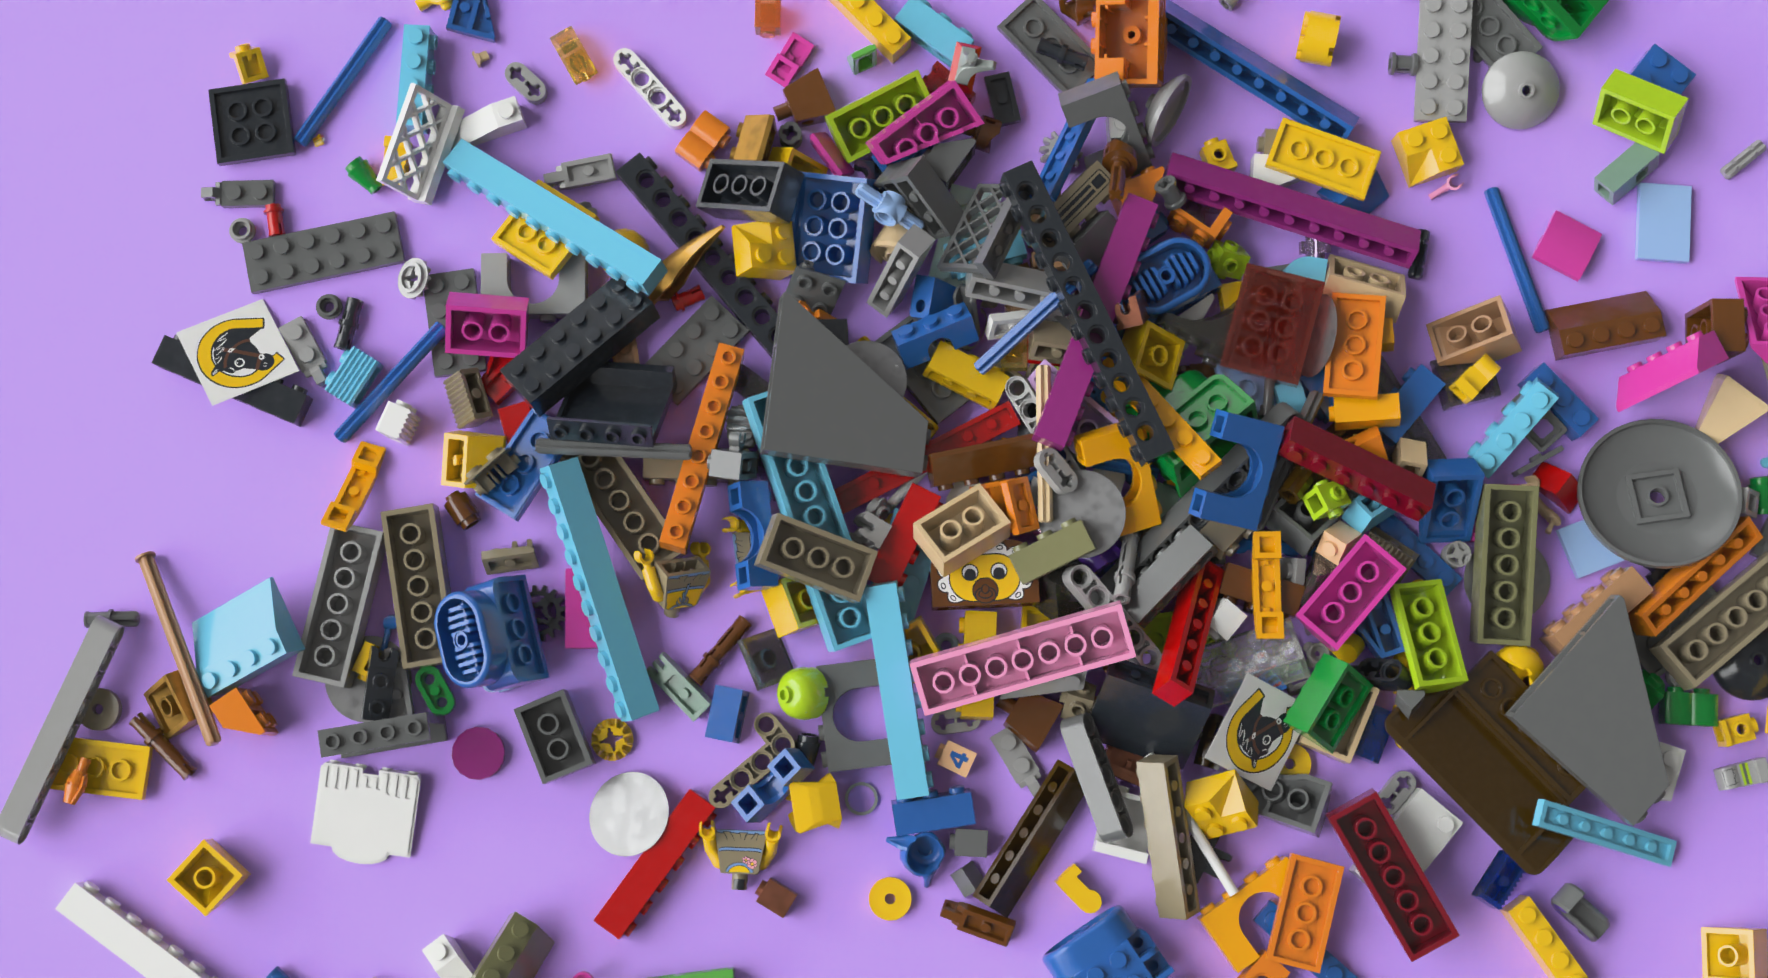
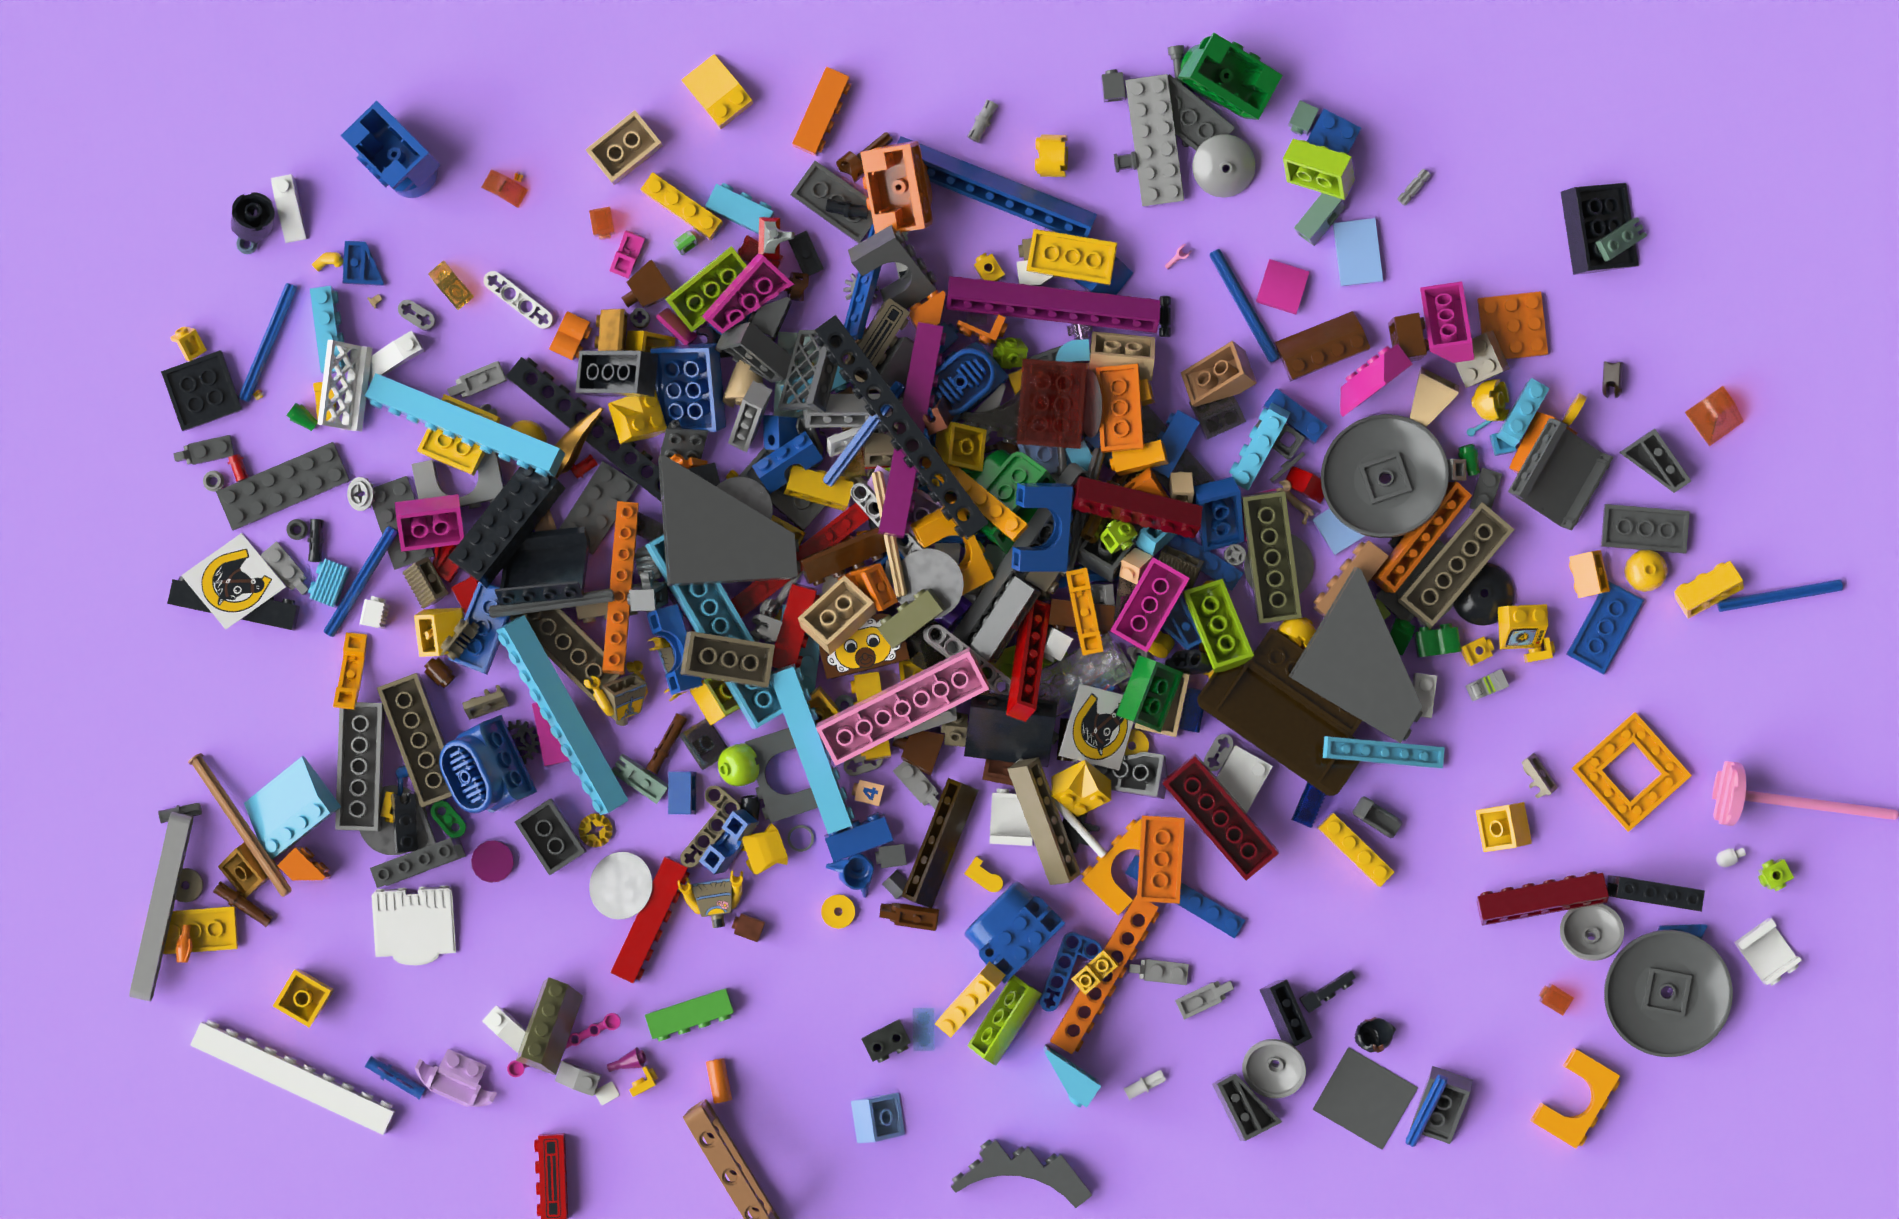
camera: 10 degrees left, 5 degrees up
(888, 207) = (731, 367): light blue axle -> none
(1055, 471) = (898, 558): light grey beam -> none
(1096, 777) = (980, 786): beam -> none
(1121, 162) = (907, 294): reddish brown piece -> none
(1125, 575) = (971, 624): light grey pin -> none
(1166, 108) = (938, 240): light grey dish -> none
(1170, 192) = (953, 311): dark grey bush -> none
(1409, 701) = (1212, 680): dark grey slope -> none
(1427, 152) = (1156, 232): yellow slope -> none
(1474, 378) = (1222, 413): yellow leg -> none
(1624, 52) = (1302, 118): none -> sand green brick

